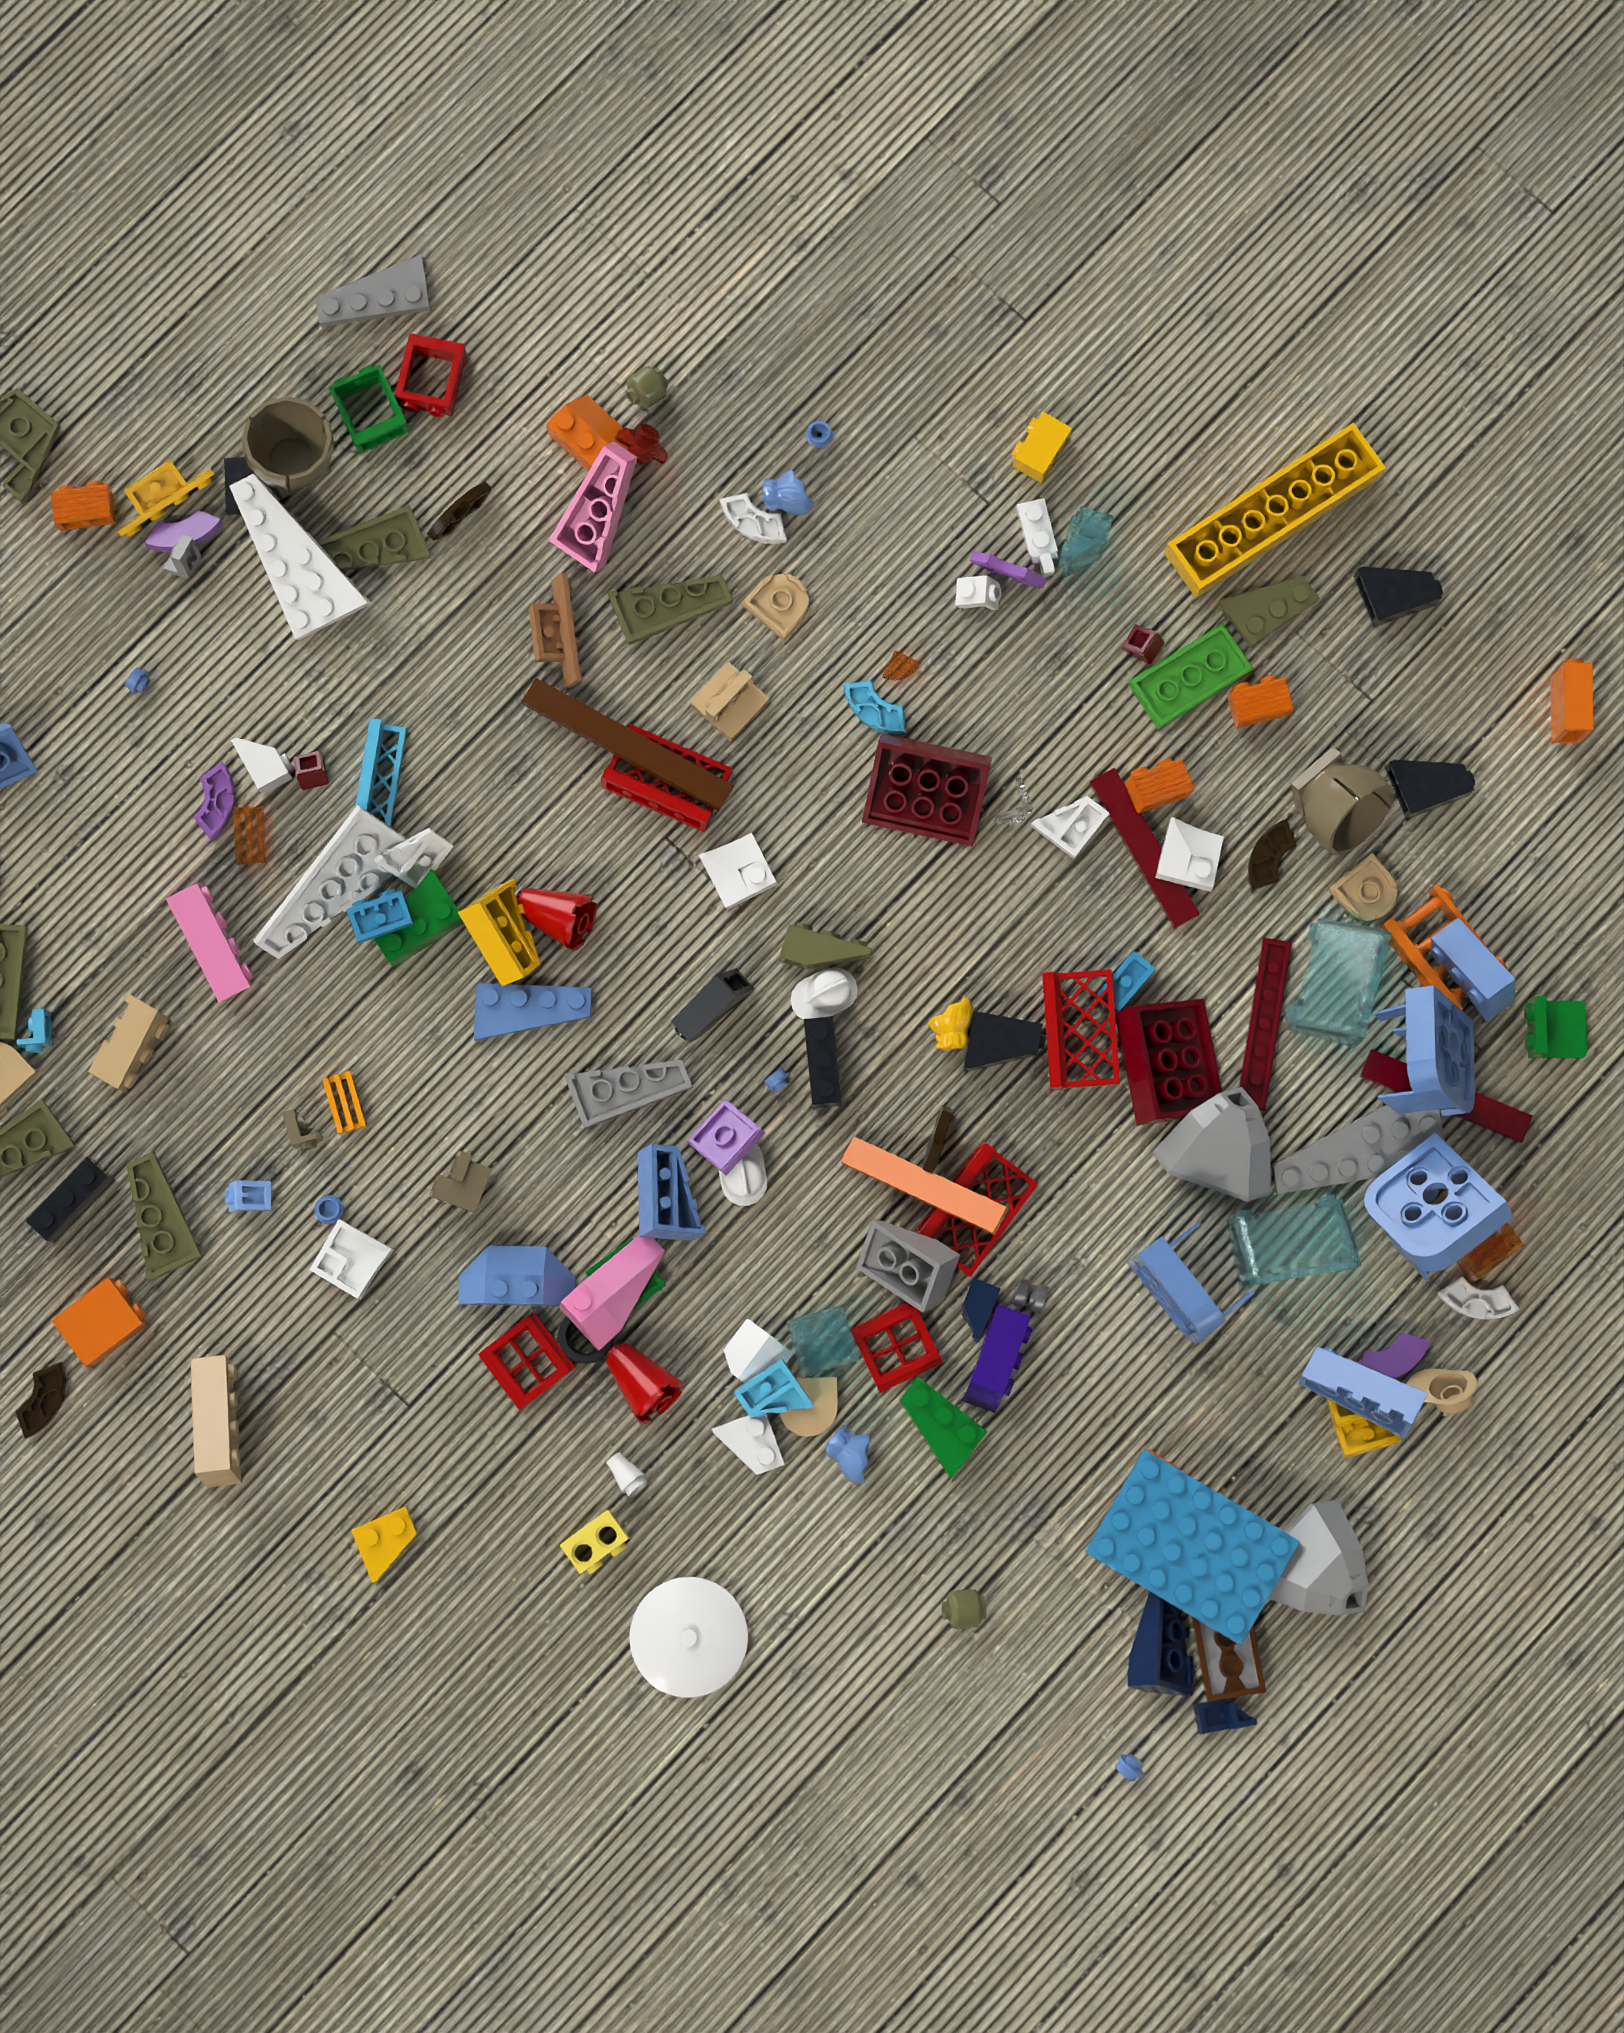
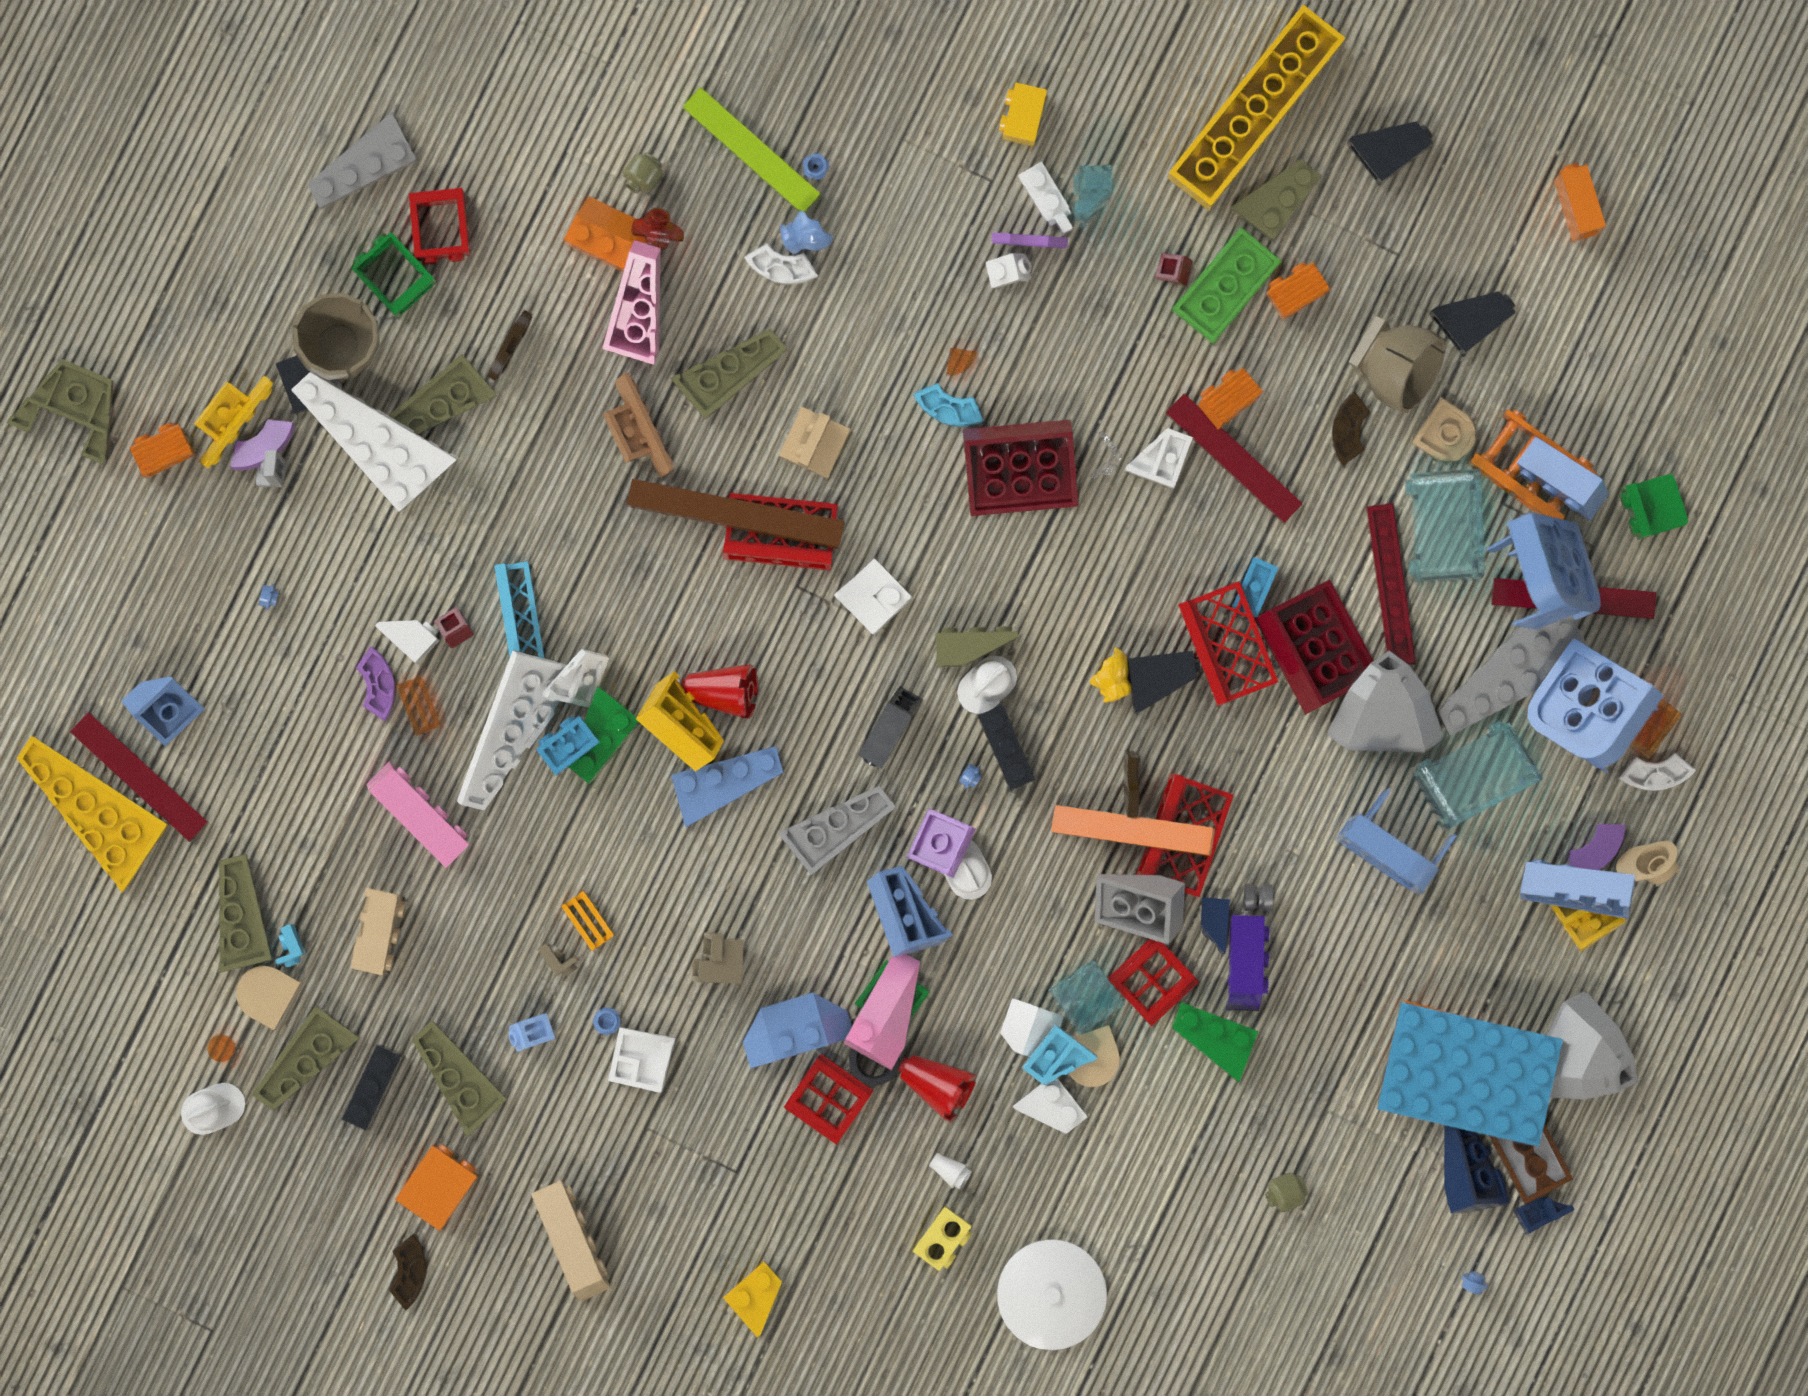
camera: 15 degrees left, 5 degrees up
(761, 400) = (751, 150): none -> lime tile
(779, 603) = (830, 336): tan tile -> none
(850, 1453) = (1142, 1088): medium blue hair -> none
(1189, 856) = (1277, 453): white plate -> none

